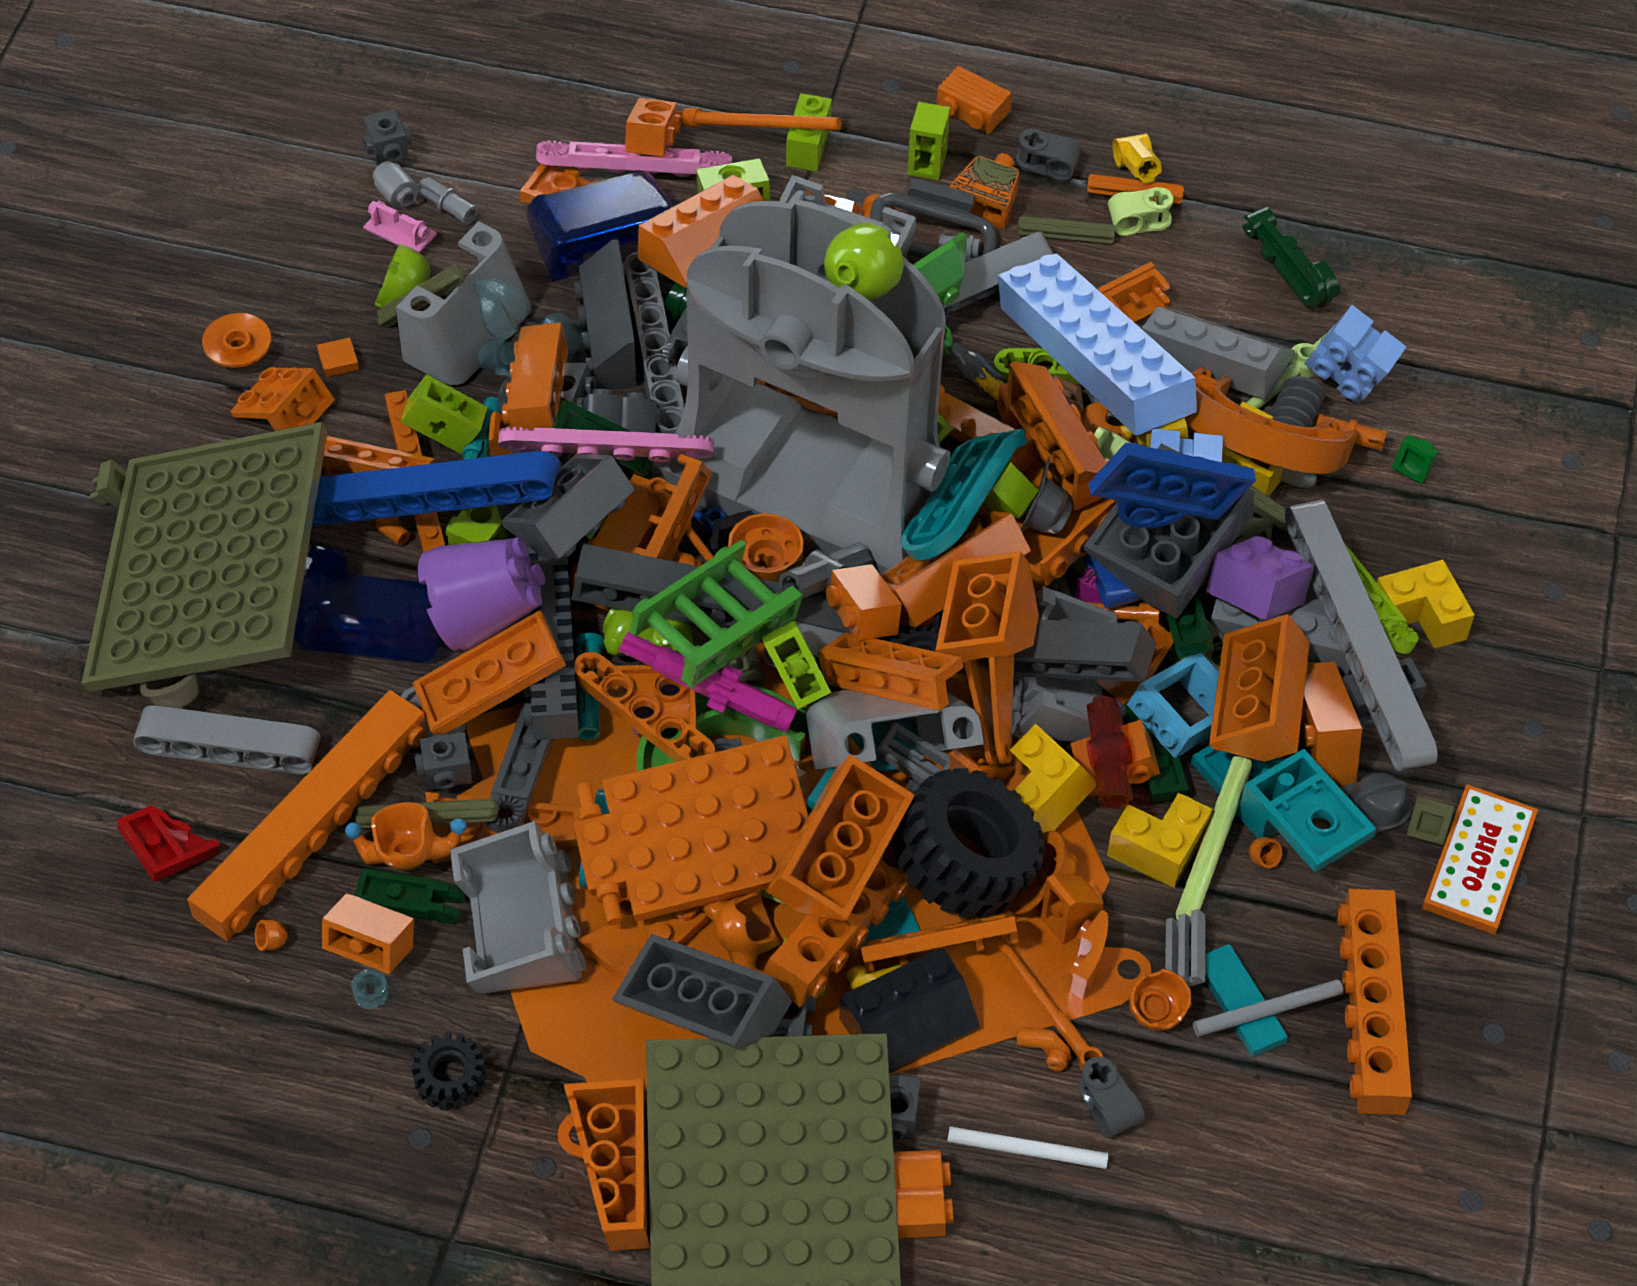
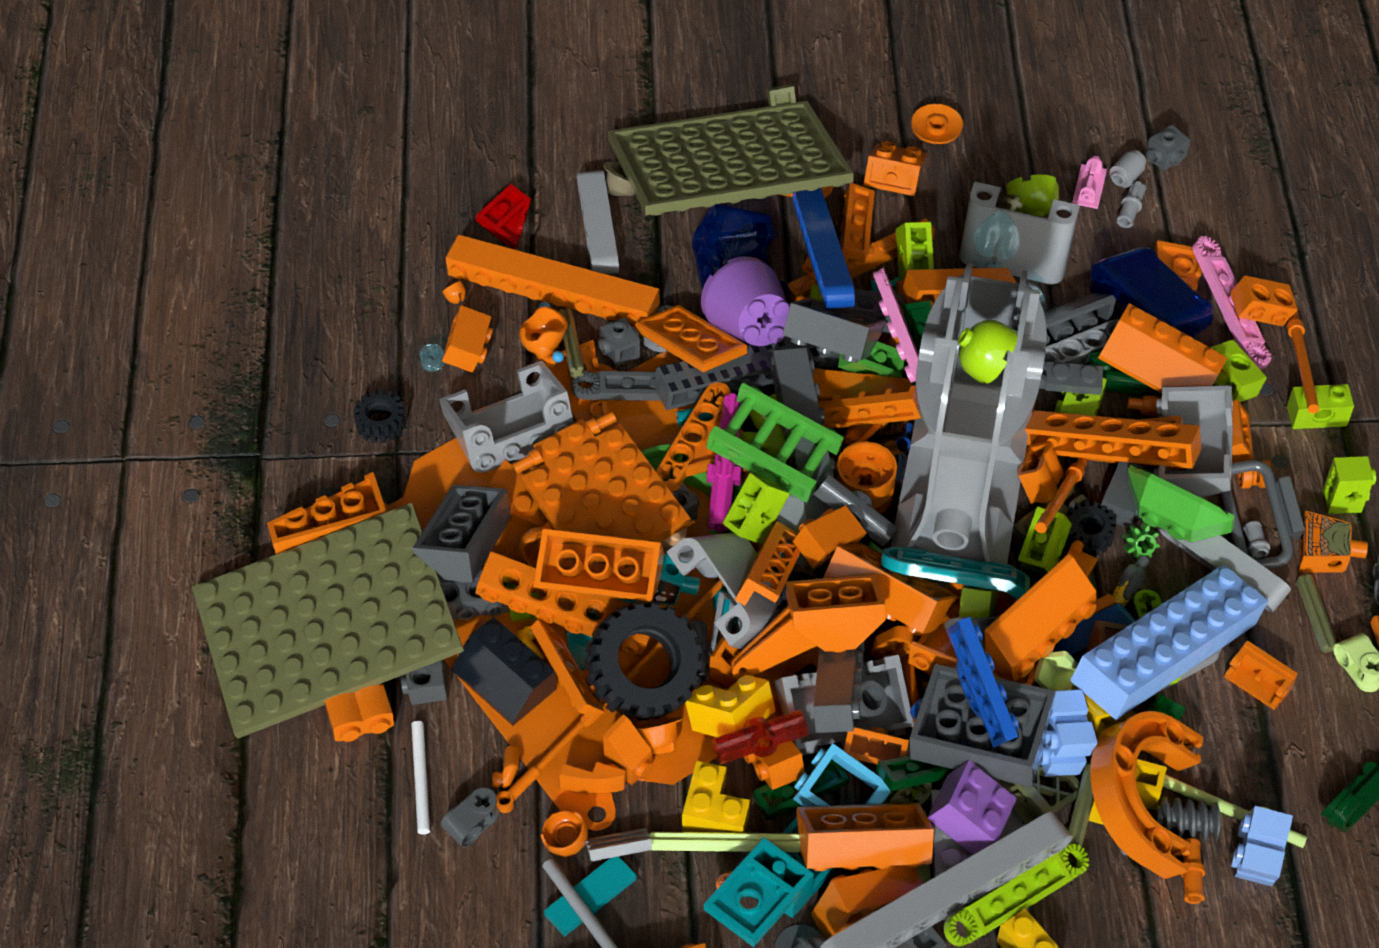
camera: 75 degrees right, 0 degrees up
(337, 357) = (953, 186): orange tile -> none
(410, 895) = (507, 352): dark green hinge -> none
(1197, 342) = (1233, 746): light grey slope -> none
(1415, 458) = (1186, 927): green tile -> none

